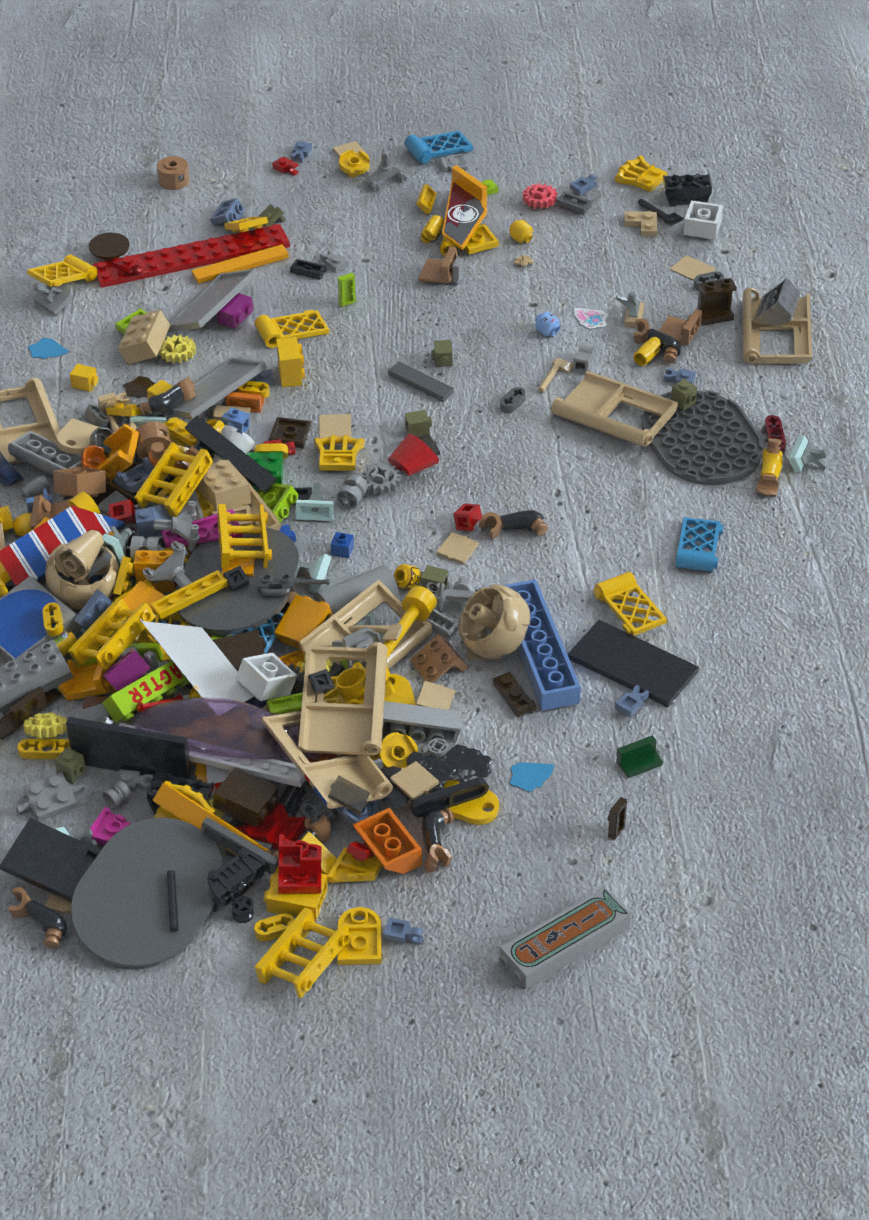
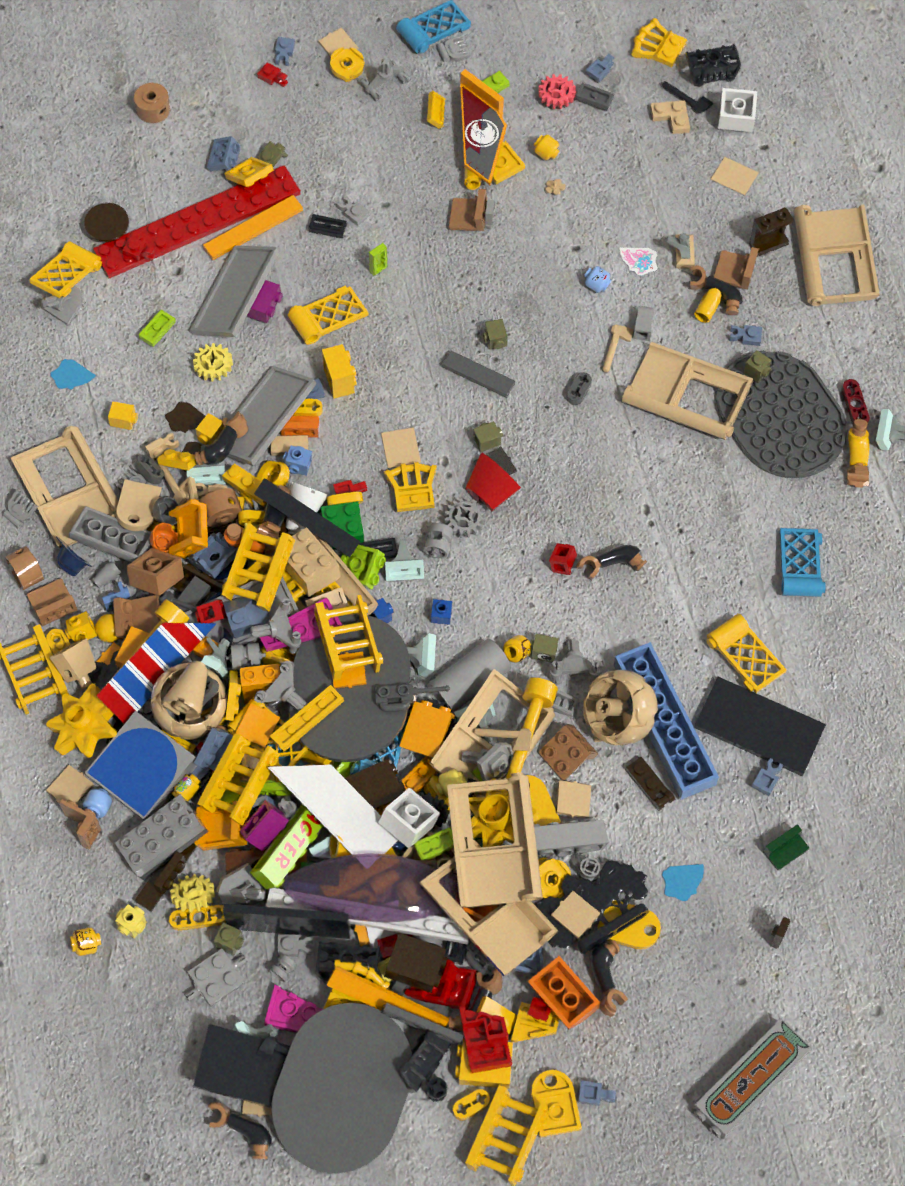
camera: 10 degrees left, 20 degrees up
(56, 618) = (168, 768): yellow beam -> none
(140, 706) = (290, 873): red axle -> none
(144, 337) = (175, 354): tan brick -> none
(172, 901) = (369, 1096): black bar -> none
(236, 578) = (351, 692): black tile -> none
(291, 431) = (355, 462): dark brown tile -> none
(321, 681) = (469, 827): black tile -> none
(349, 795) = (520, 954): clear smoke piece -> none
(432, 229) = (450, 153): yellow arm -> none
(457, 548) = (558, 597): tan piece -> none
(712, 276) = (756, 195): dark grey beam -> none
(778, 304) = (834, 227): flat silver slope -> none

